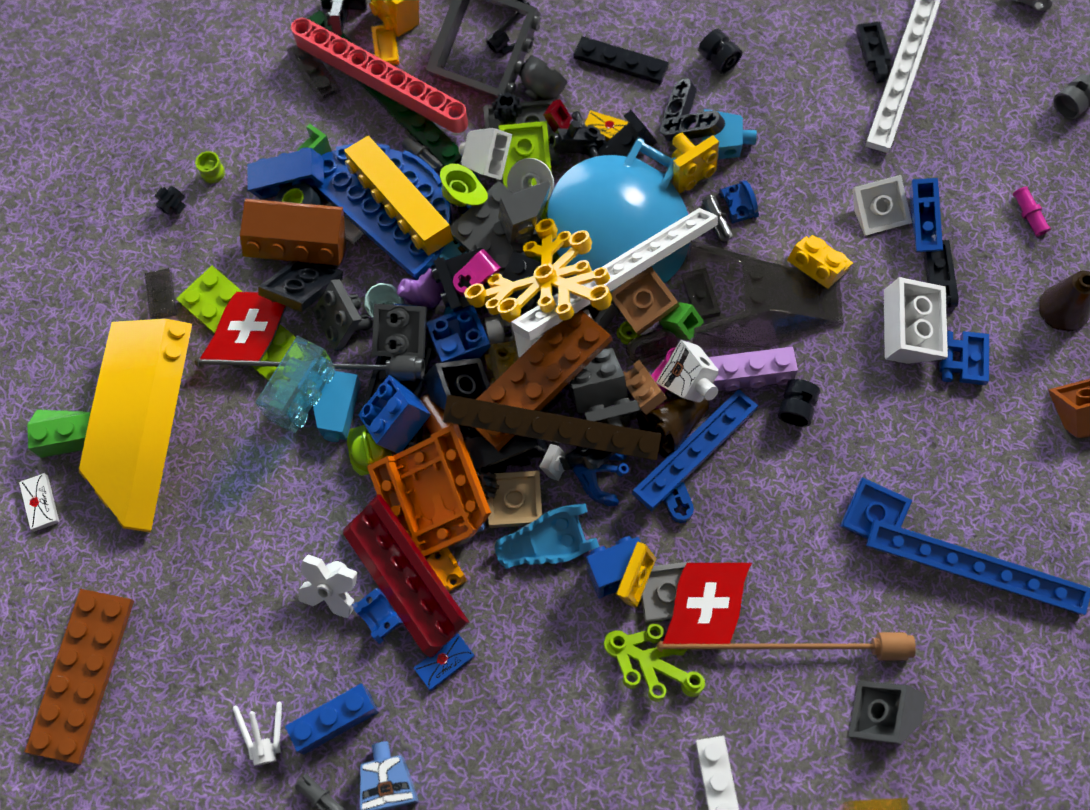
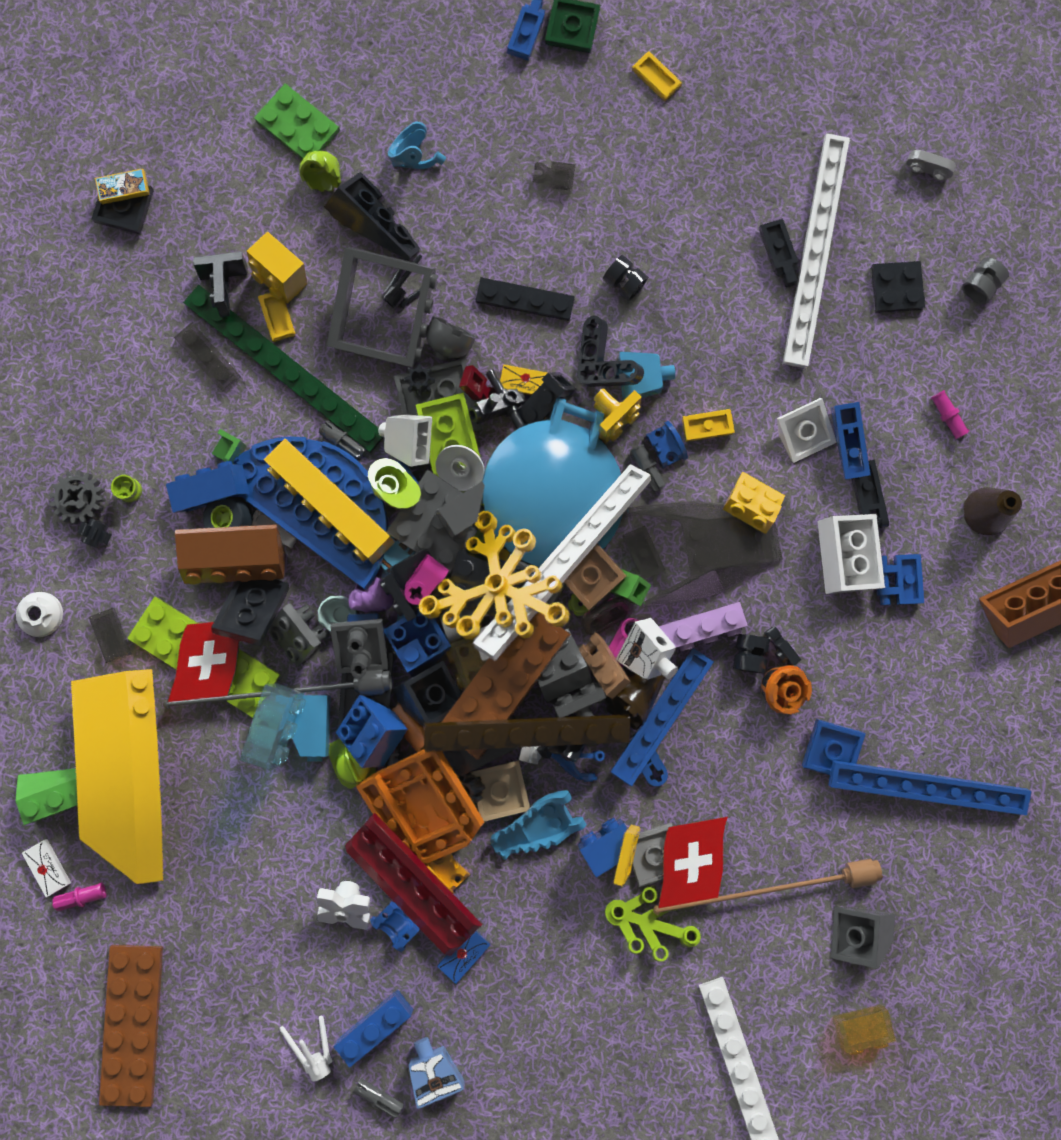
camera: 20 degrees left, 15 degrees up
(63, 535) = (79, 897): none -> dark pink axle
(103, 274) = (50, 616): none -> white piece
(162, 168) = (66, 501): none -> dark grey gear
(380, 75) = (270, 352): coral beam -> none
(783, 188) = (708, 425): none -> yellow plate
(831, 440) = (786, 689): none -> orange cone
(834, 405) = (785, 652): none -> black plate
(989, 94) = (898, 286): none -> black plate

